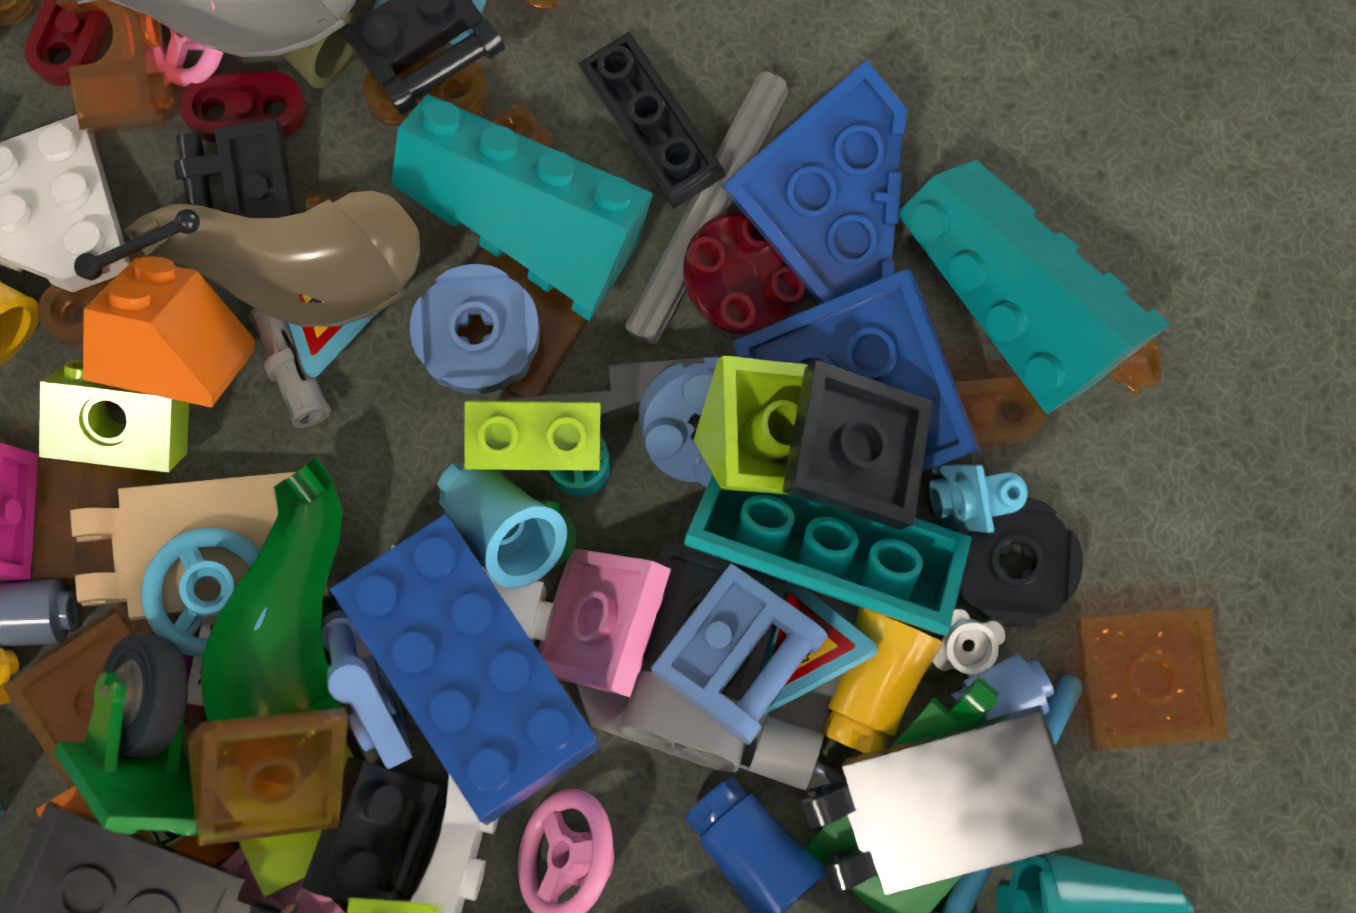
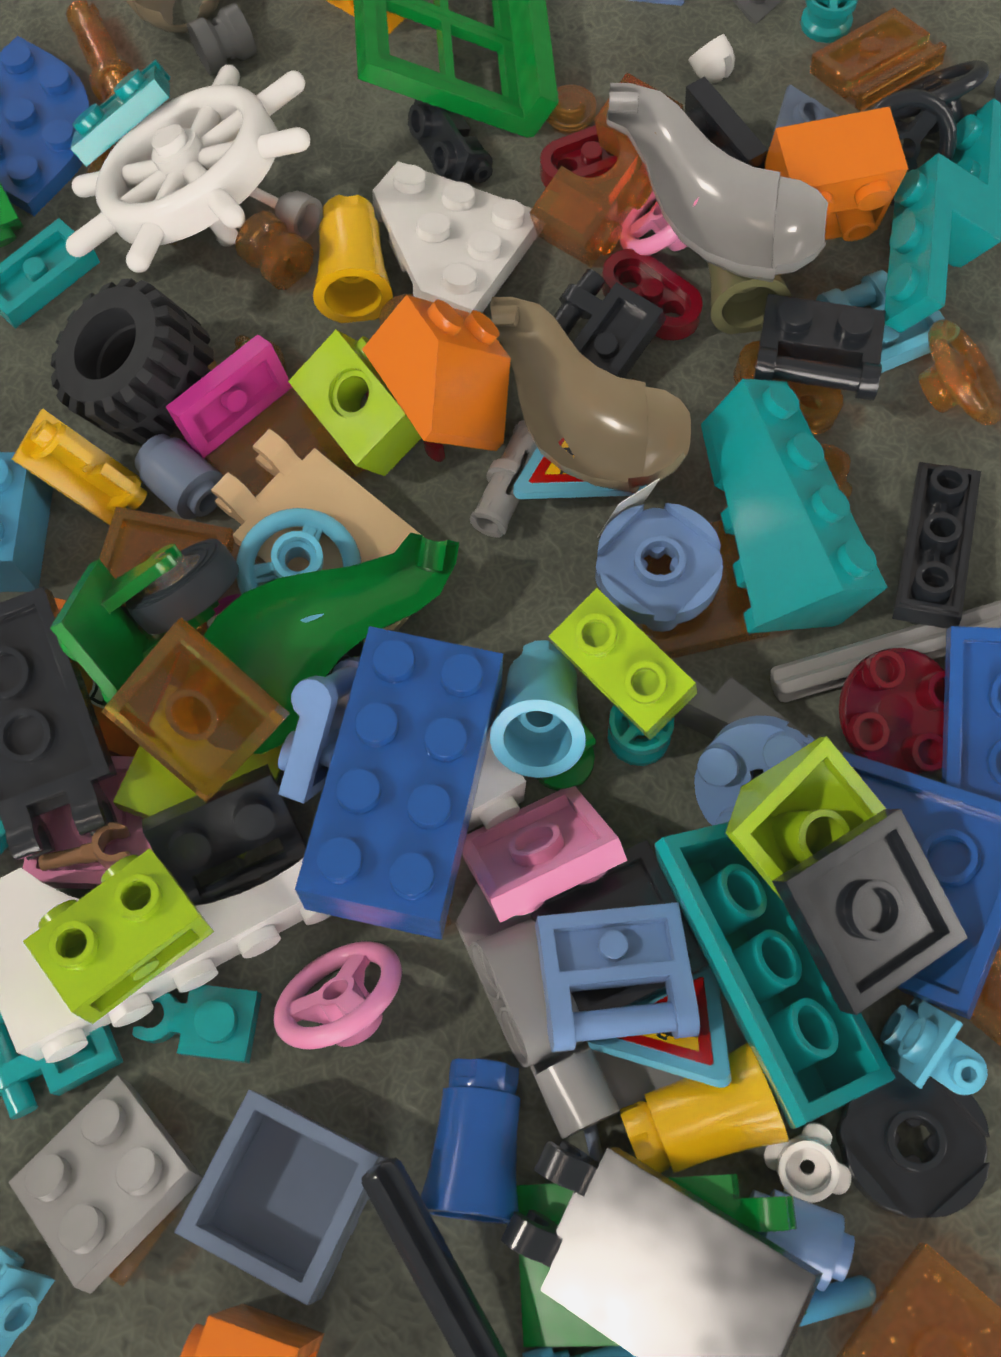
camera: 50 degrees right, 10 degrees down
(91, 266) = (535, 319): black hinge -> none
(409, 307) = (634, 500): none -> white sticker

